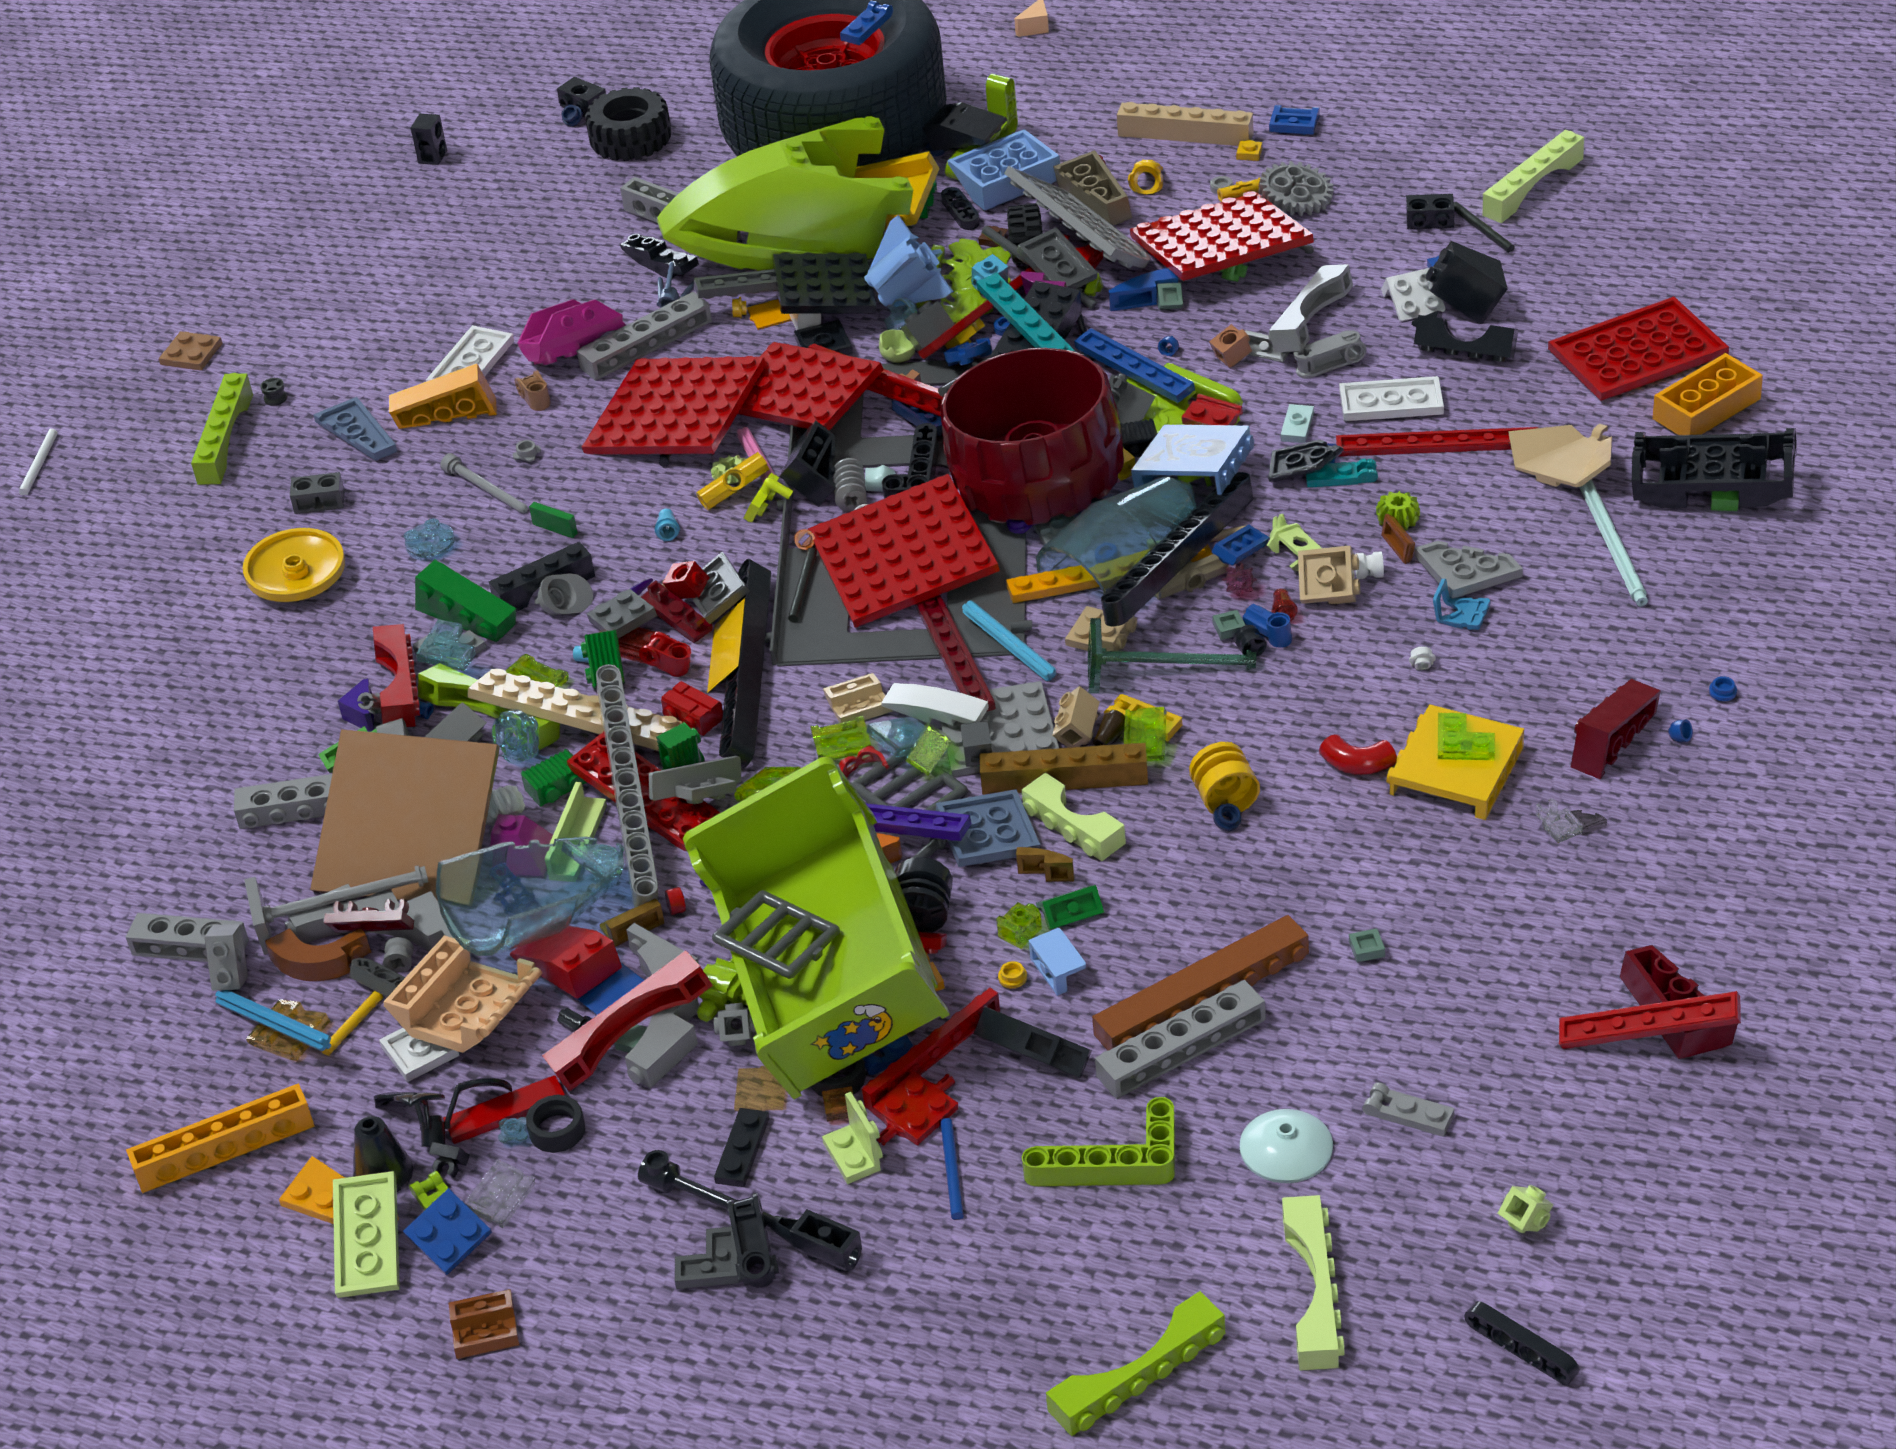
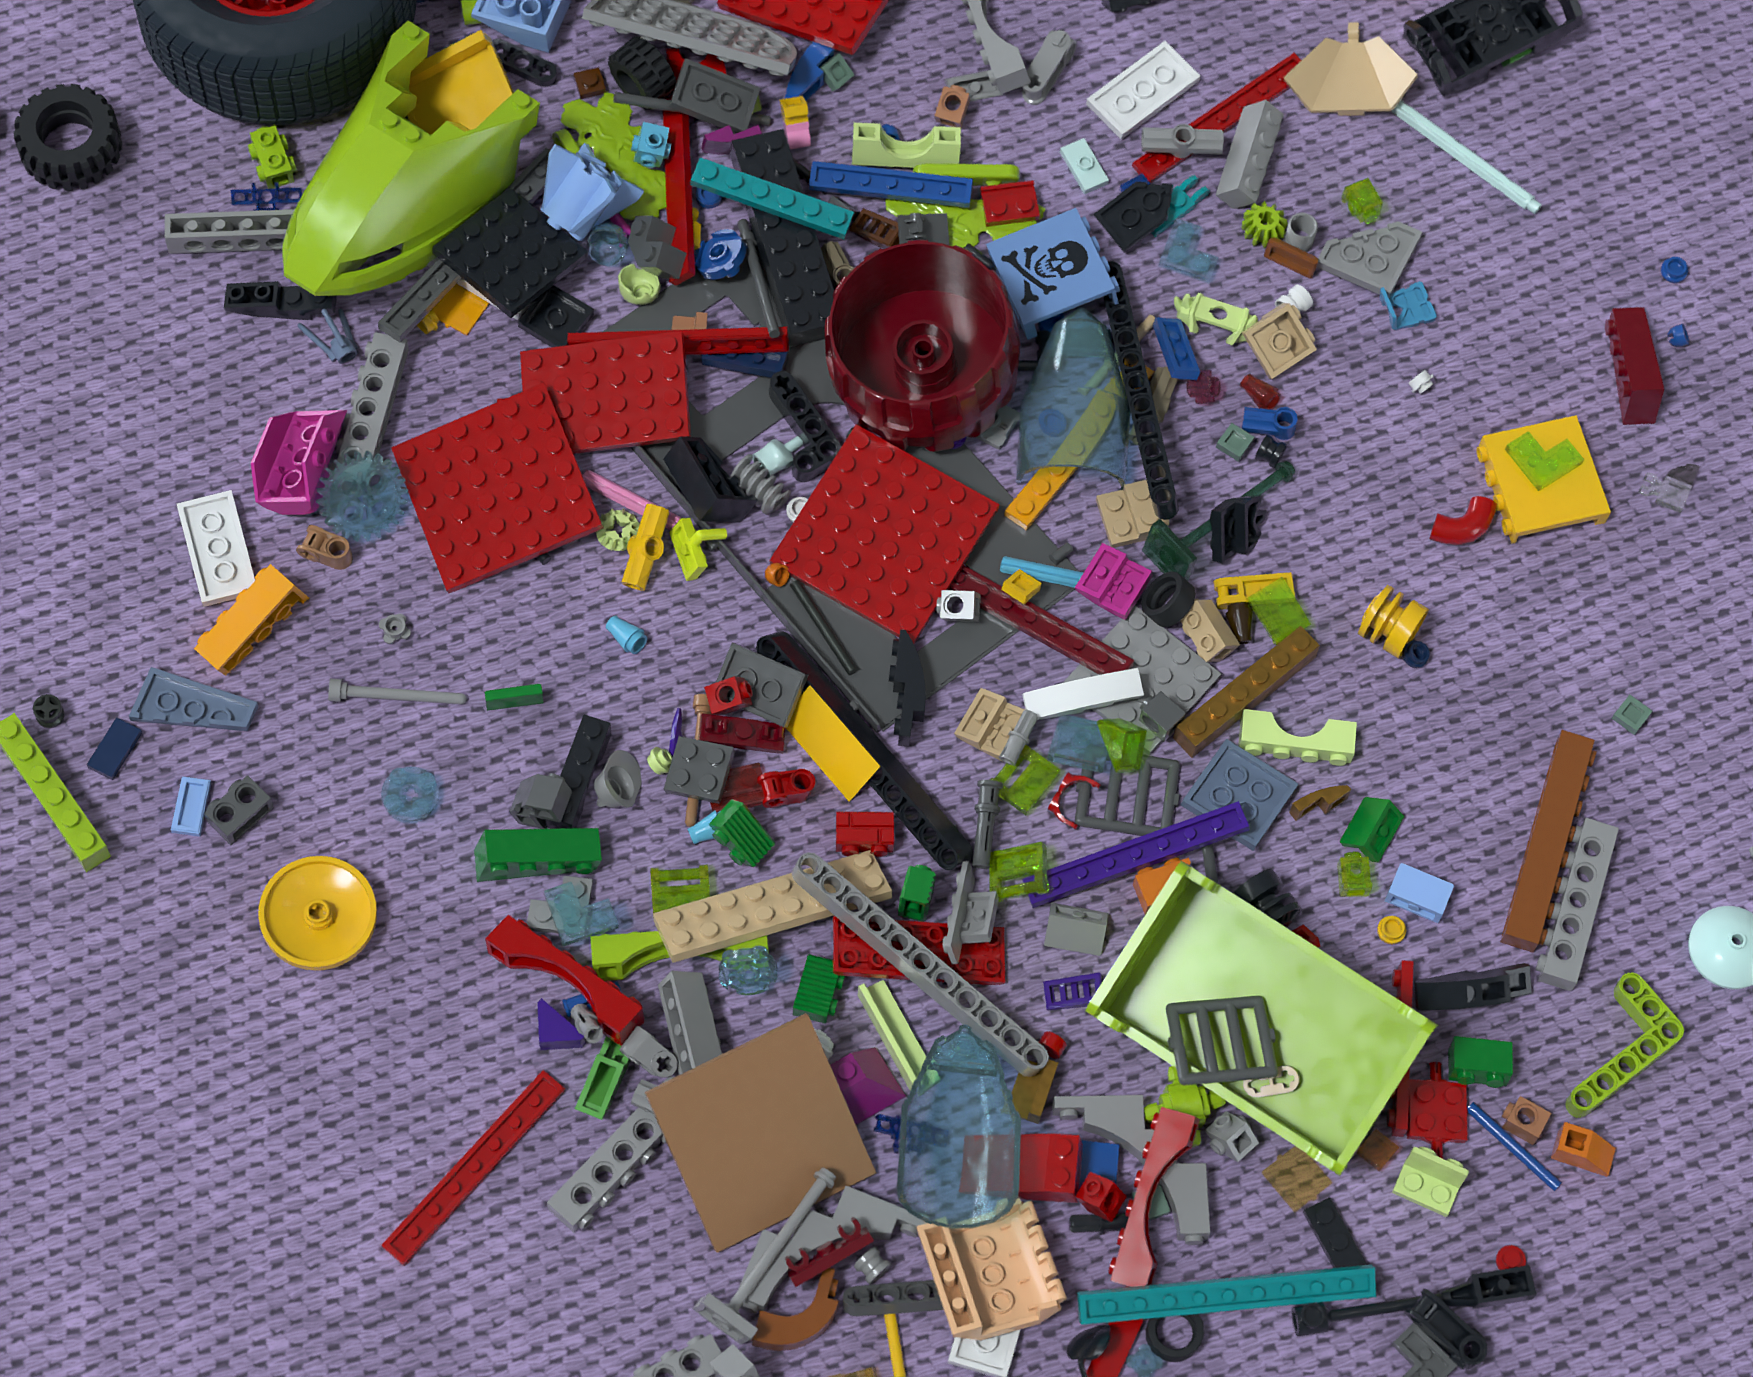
camera: 50 degrees left, 25 degrees up
(222, 756) = (473, 1168): none -> red tile
(281, 486) = (191, 806): none -> light blue tile
(288, 430) = (114, 748): none -> dark blue tile
(493, 566) = (540, 799): none -> dark grey brick
(595, 1005) = (1100, 1196): none -> red brick
(600, 372) = (338, 500): none -> clear light blue gear
(602, 596) = (659, 760): none -> yellowish green plate
(613, 1112) = (1226, 1294): none -> teal plate
(788, 735) = (987, 810): none -> dark grey pin
(797, 990) = (1277, 1088): none -> tan beam
(818, 646) = (909, 685): none -> black slope
(860, 705) = (1018, 737): none -> light grey axle
(868, 1236) = (1510, 1257): none -> red plate
(907, 612) = (970, 609): none -> brick
(962, 621) = (1021, 586): none -> yellow plate
(977, 1152) = (1536, 1114): none -> nougat brick
(981, 1090) = (1480, 1061): none -> green brick
(999, 1195) = (1583, 1149): none -> orange slope
(1036, 653) = (1113, 581): none -> dark pink slope
(1063, 681) = (1176, 607): none -> black tyre
(1105, 306) = (795, 122): none -> leg
(1148, 341) = (876, 148): none -> yellowish green arch
(1166, 665) = (1235, 526): none -> black plate
(1317, 503) = (1182, 257): none -> clear light blue plate
(1383, 432) = (1197, 140): none -> light grey piece
(1420, 524) = (1305, 223): none -> light grey piece
(1430, 462) = (1249, 154): none -> light grey brick
(1494, 530) = (1362, 201): none -> clear neon green brick

